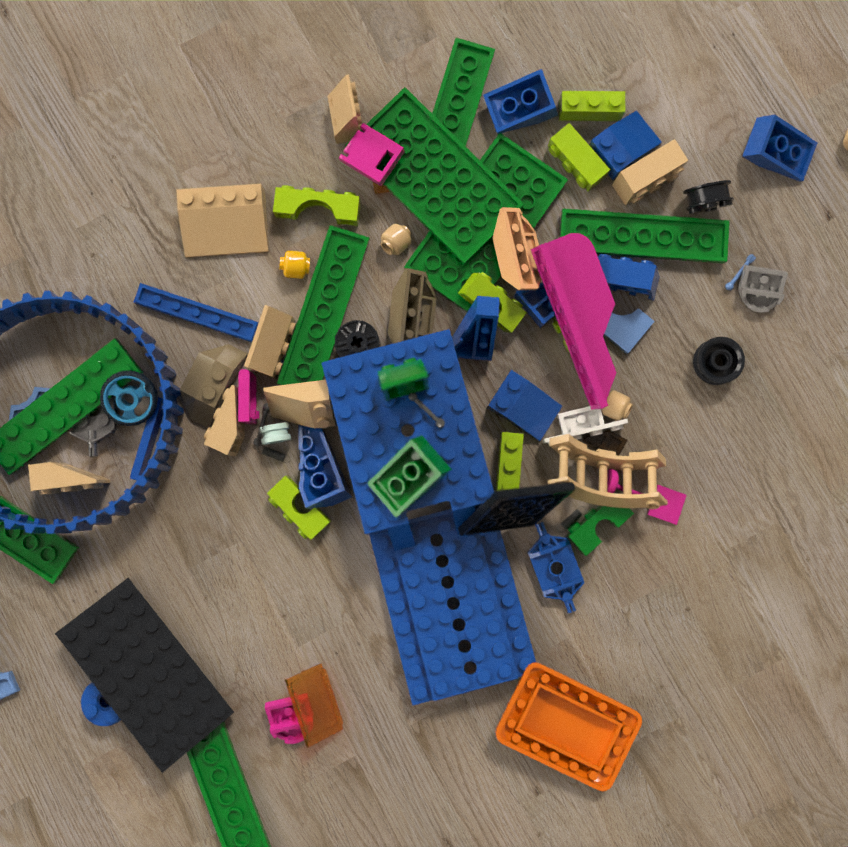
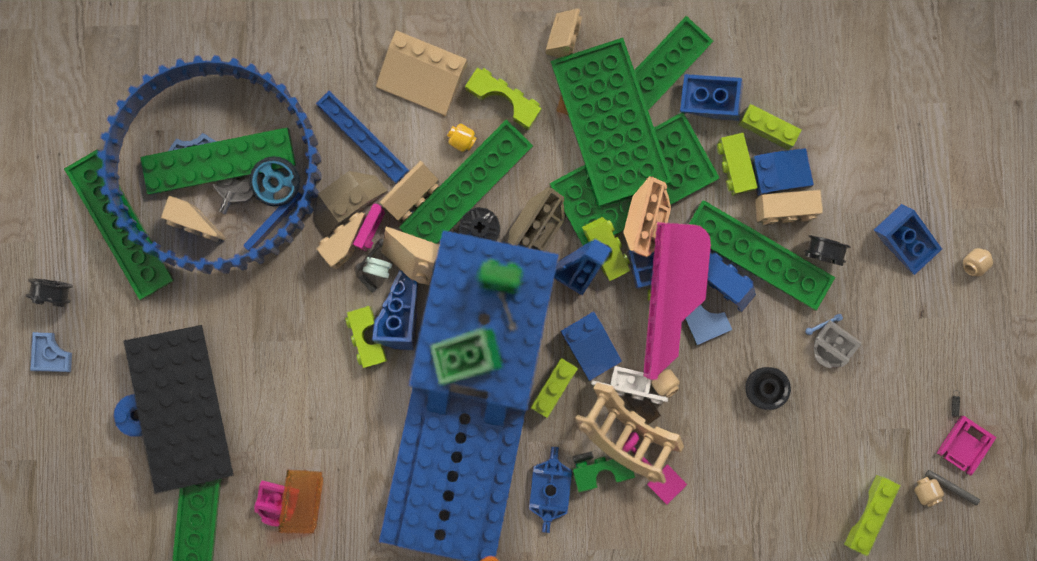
camera: 25 degrees right, 0 degrees up
(368, 150) = (565, 76): dark pink container -> none
(395, 239) = (554, 157): tan head -> none
(516, 508) = (539, 425): black tile -> none

